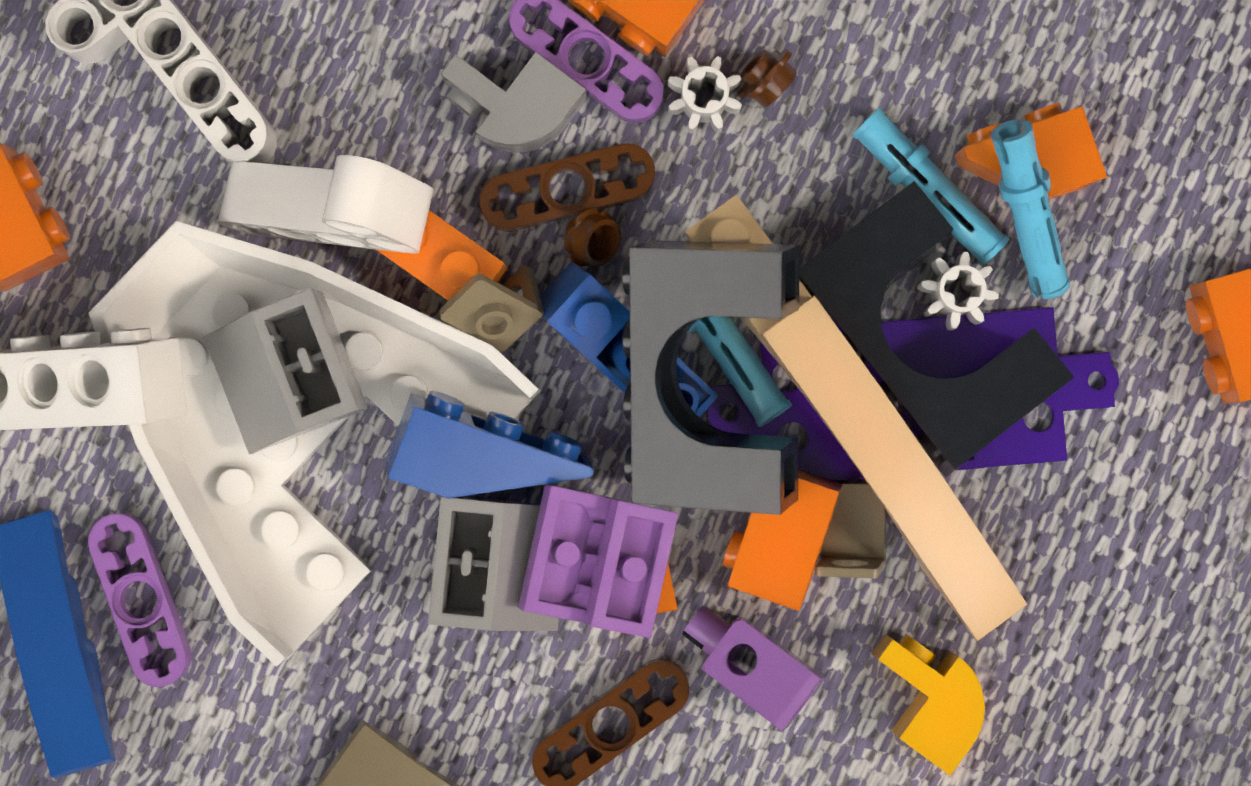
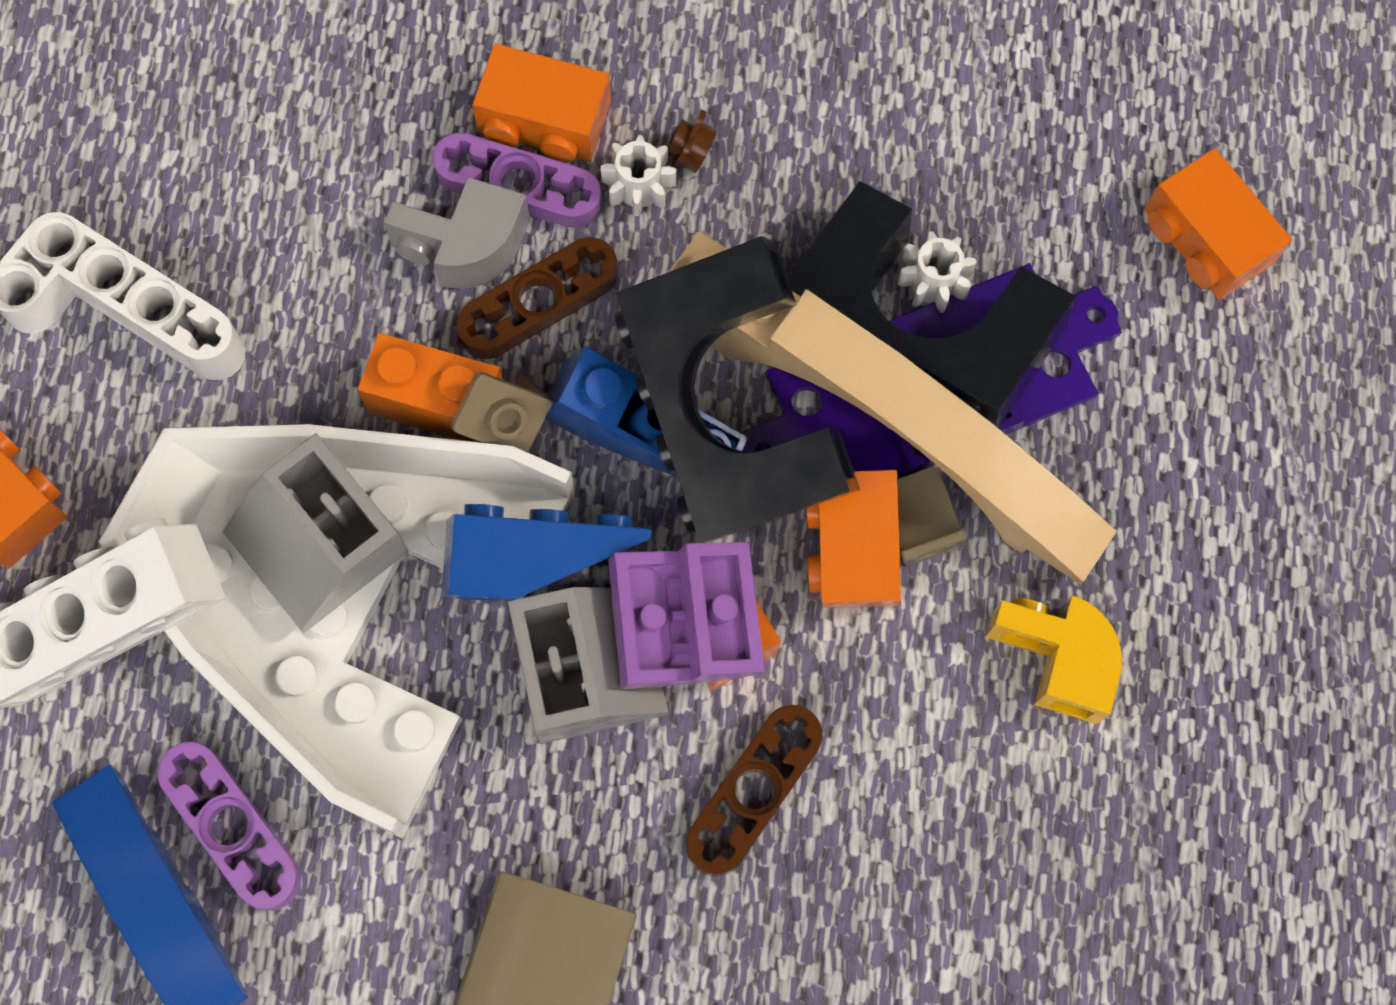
camera: 25 degrees left, 15 degrees down
(350, 206) = (348, 346): white beam -> none
(592, 238) = (575, 329): reddish brown plate -> none
(742, 367) = (790, 422): medium azure pin -> none
(776, 685) = (902, 687): medium lavender torso -> none
(878, 132) = (842, 176): medium azure pin -> none
(1026, 190) = (965, 152): medium azure pin -> none
(1062, 146) = (963, 137): orange slope -> none

